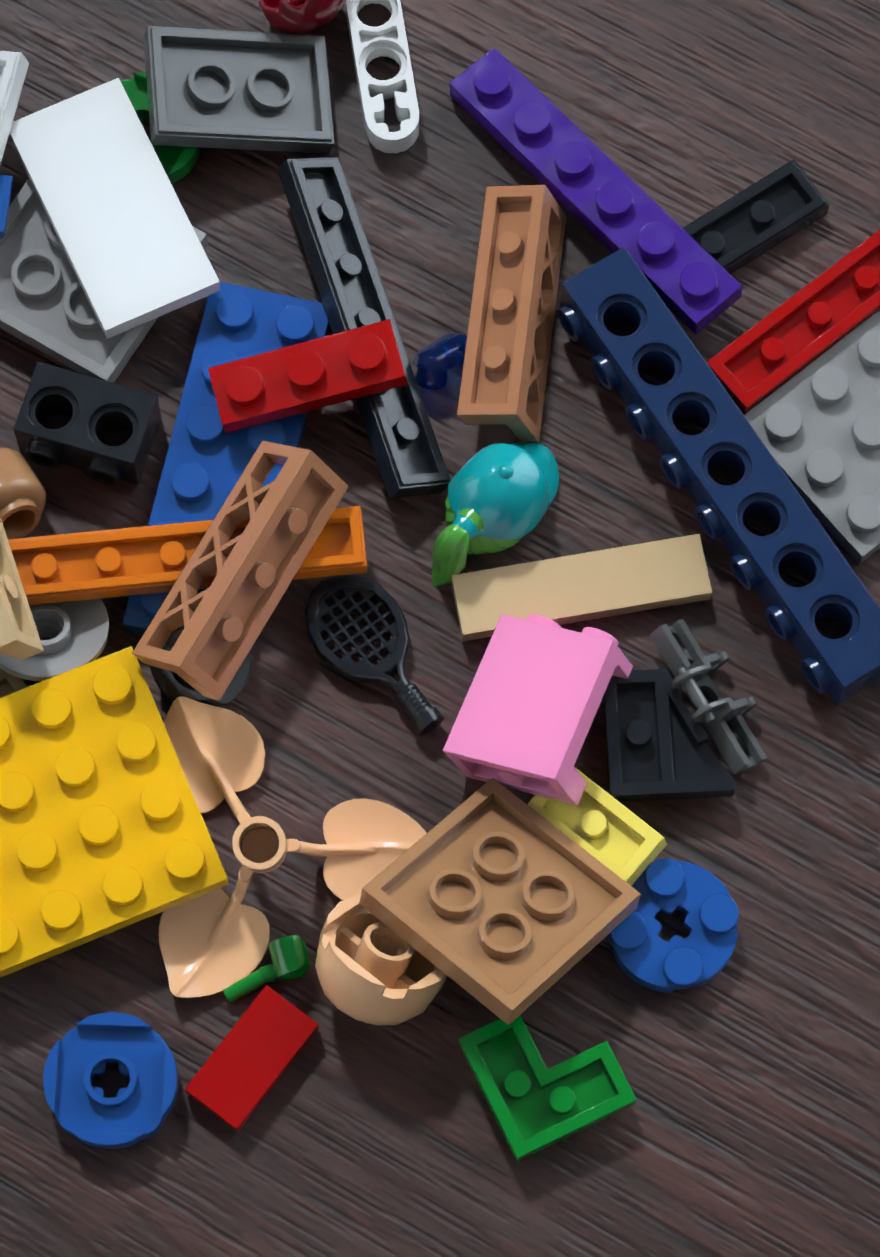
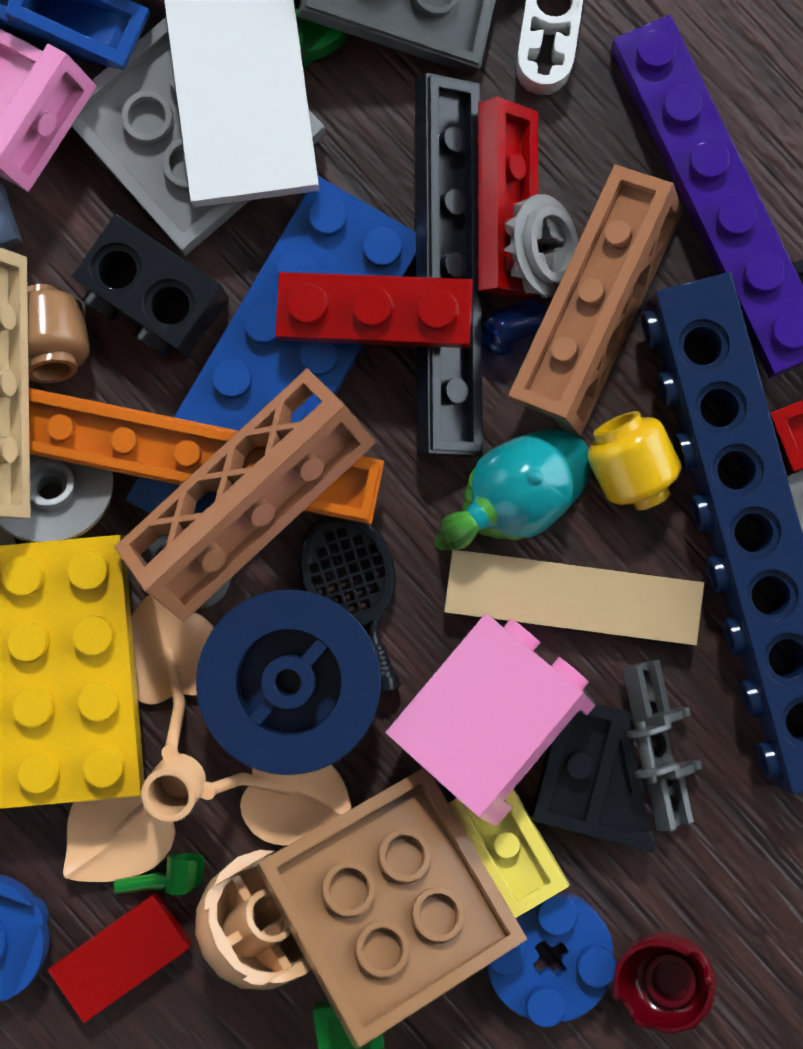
camera: 20 degrees right, 15 degrees up
(336, 727) = (288, 682): none -> dark blue piece
(399, 249) = (505, 176): none -> red plate
(439, 259) = (543, 221): none -> light grey gear
(595, 443) = (634, 460): none -> yellow head
(787, 904) = (665, 982): none -> dark red hair

